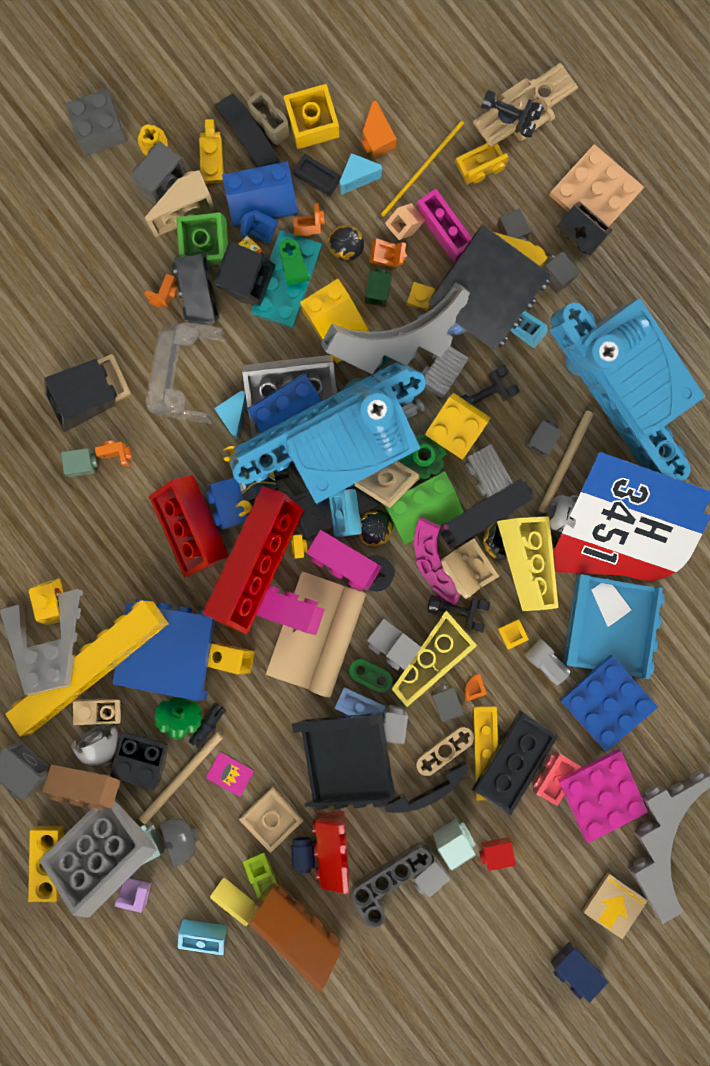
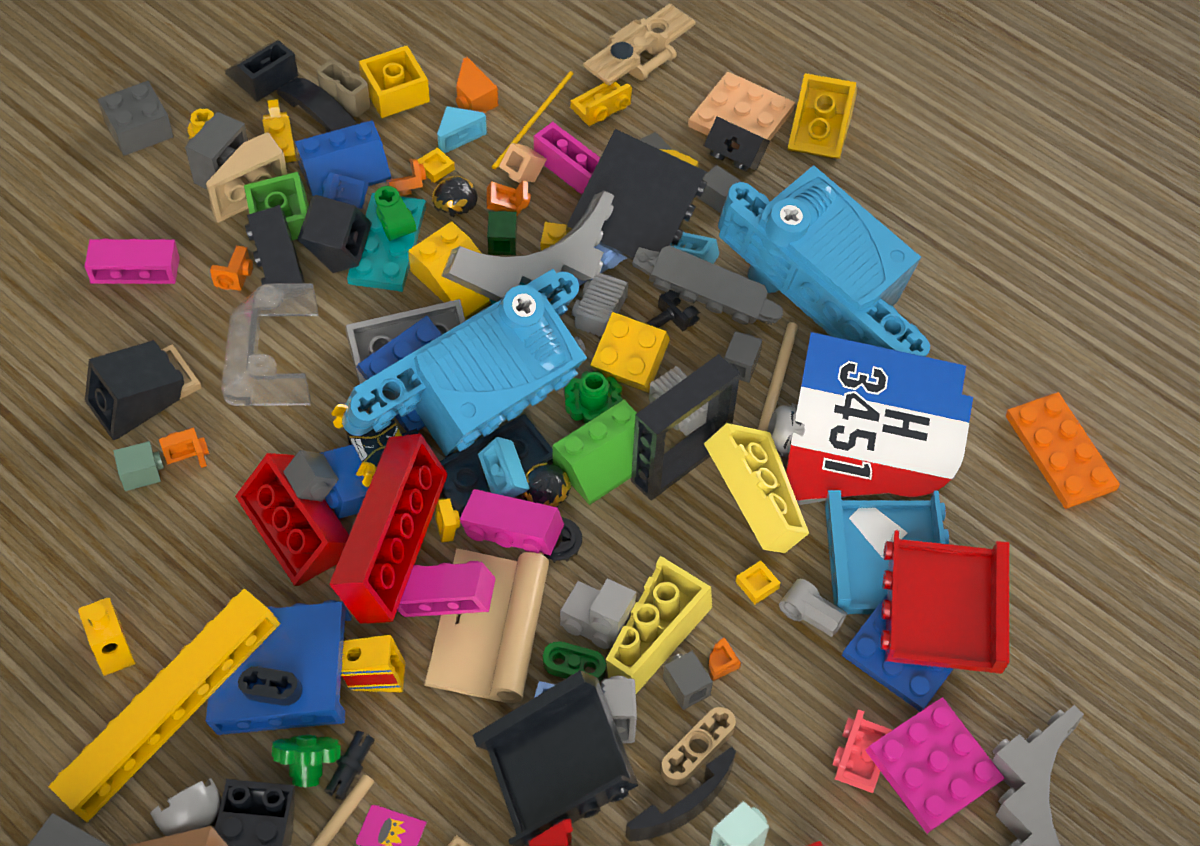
camera: 15 degrees left, 30 degrees down
(50, 663) = (111, 700): light grey wing -> none
(85, 270) = (132, 261): none -> dark pink brick
(96, 711) = (184, 765): tan slope -> none
(158, 668) = (268, 692): none -> black beam
(202, 505) = (310, 475): none -> dark grey brick
(204, 84) = (264, 70): none -> black slope
(233, 412) = (336, 380): medium azure slope -> none
(317, 175) = (408, 138): black tile -> none
(334, 208) = (436, 164): none -> yellow plate
(388, 483) = (551, 421): tan tile -> none
(430, 562) = (629, 515): dark pink tile -> none
(436, 605) = (702, 554): black bar -> none
(470, 567) = (685, 506): tan bracket -> none
(484, 738) = (757, 738): yellow plate -> none
(493, 542) = (706, 474): black hair -> none
(514, 762) = (799, 741): black tile -> none
(524, 126) = (640, 47): black bar -> none
(530, 372) = (708, 284): none -> dark grey hinge
(644, 685) = (946, 605): none -> red panel
(662, 210) = (822, 116): none -> yellow slope

